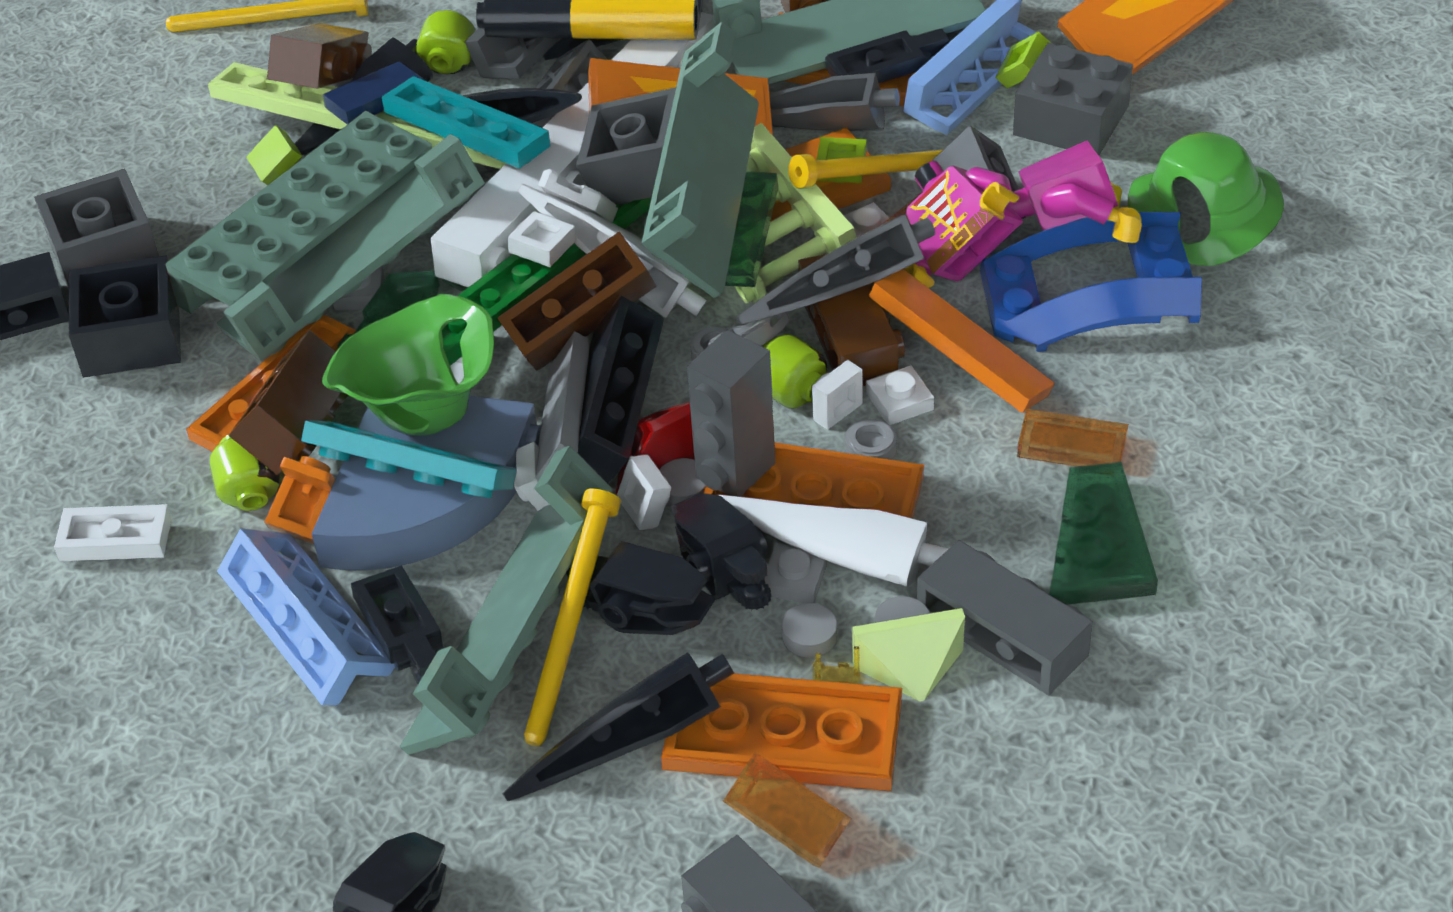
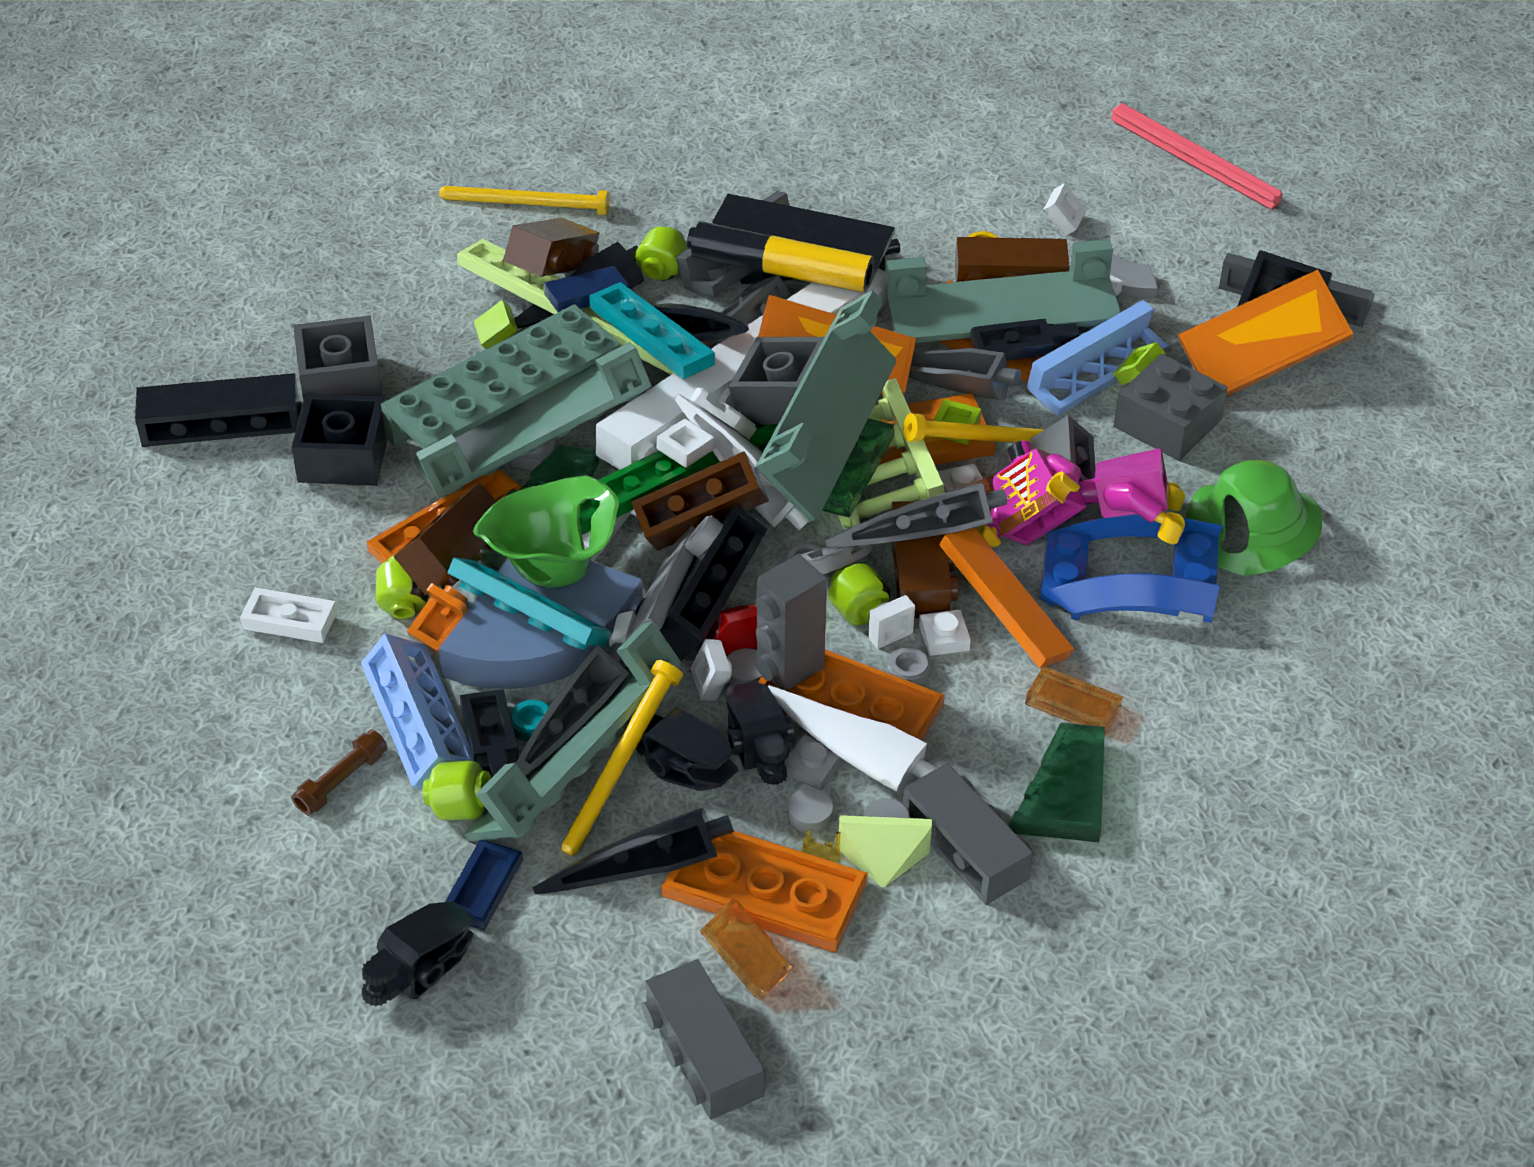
camera: 10 degrees right, 0 degrees up
(200, 740) = (312, 795): none -> reddish brown bar
(380, 696) = (453, 790): none -> lime head
(443, 797) = (485, 880): none -> dark blue tile
(446, 594) = (526, 717): none -> teal tile
(496, 563) = (574, 705): none -> dark grey piece
(594, 339) = (703, 536): none -> light grey tile

